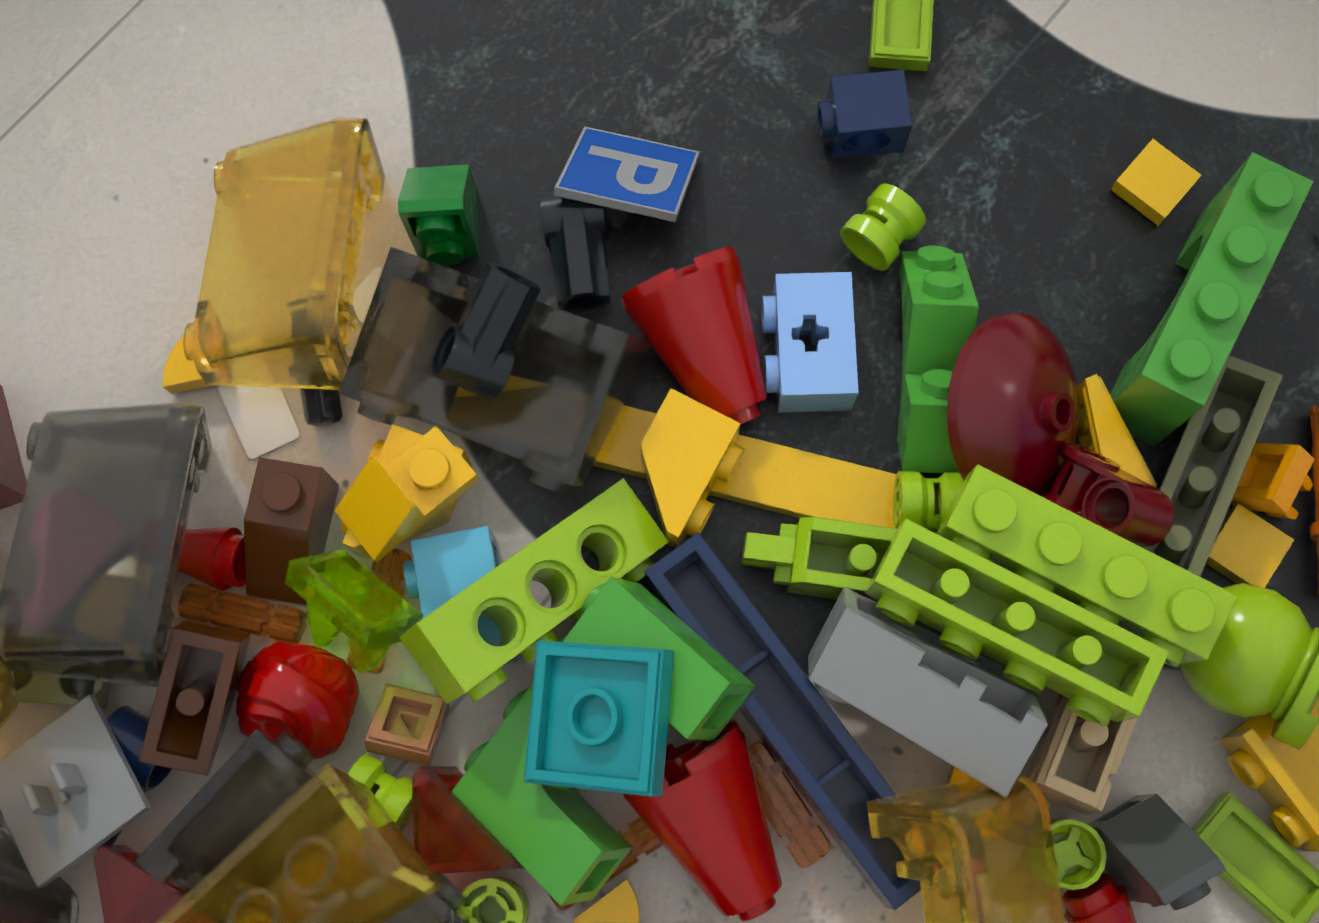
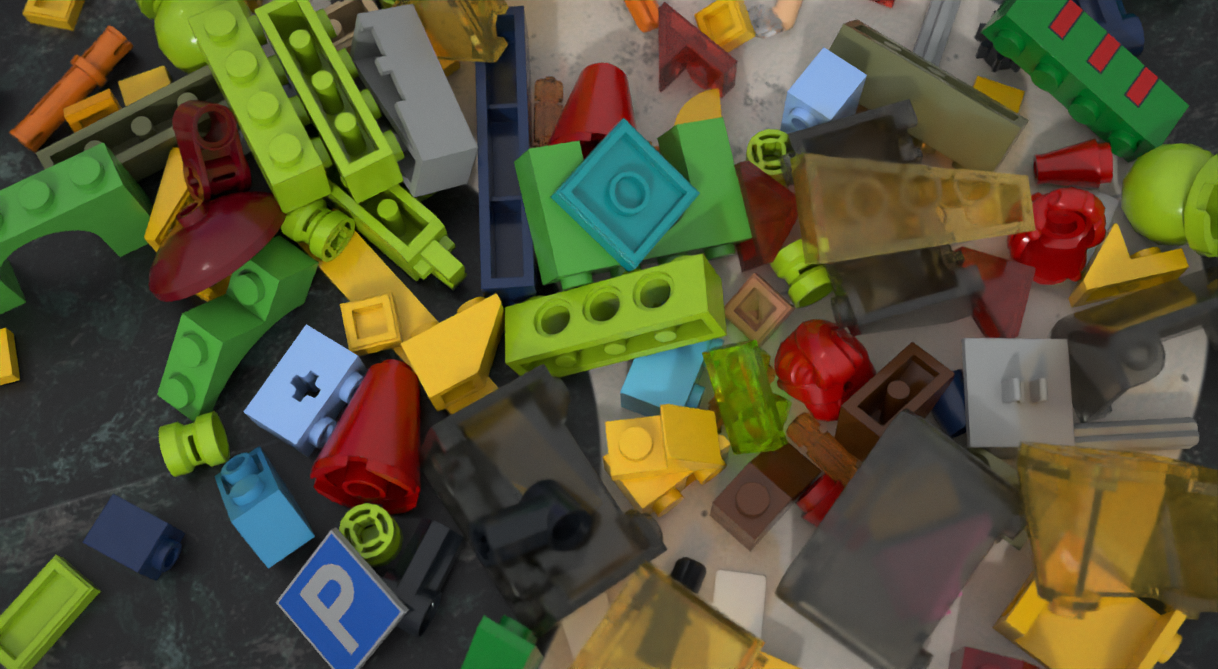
camera: 145 degrees left, 5 degrees down
(647, 260) = (380, 542): none -> lime wheel
(771, 212) = (262, 506): none -> dark azure slope
(799, 446) = (372, 324): none -> yellow tile

